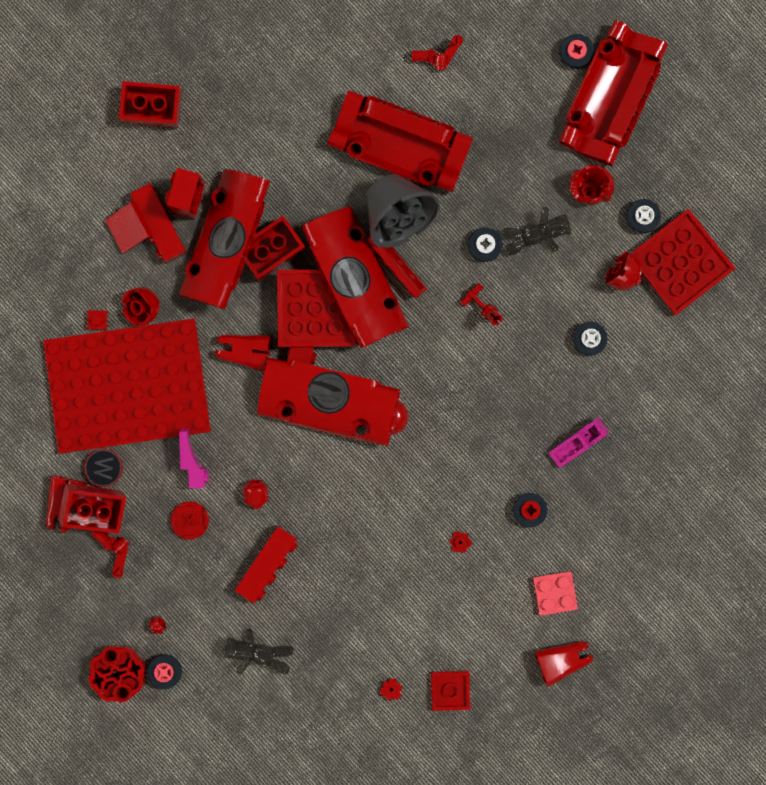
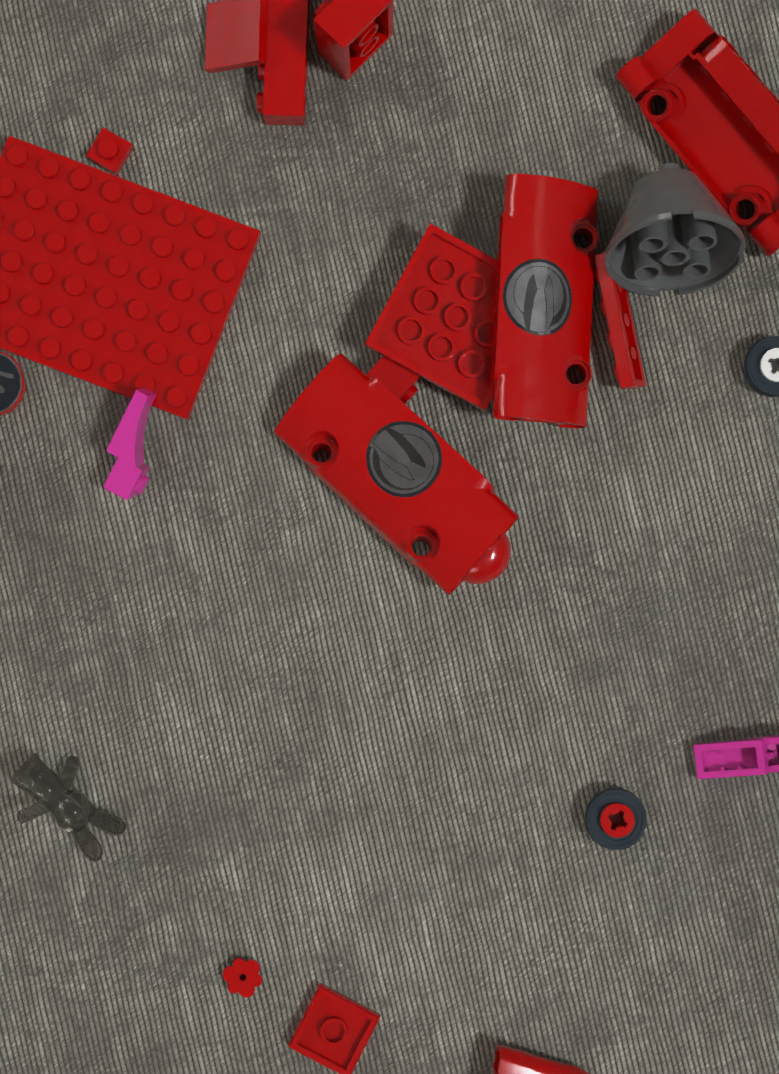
camera: 30 degrees right, 0 degrees up
(140, 306) = (187, 163): red cylinder -> none
(190, 520) = (78, 538): red tile -> none
(225, 238) = (378, 130): red panel -> none
(246, 350) = (312, 323): red piece -> none
(255, 494) = (202, 554): red head -> none
(266, 564) = (158, 673): red brick -> none
(273, 248) = (439, 186): red brick -> none
(466, 543) = (478, 797): red plant -> none
(488, 311) = (723, 473): red pin -> none
(555, 593) = (582, 970): coral plate -> none

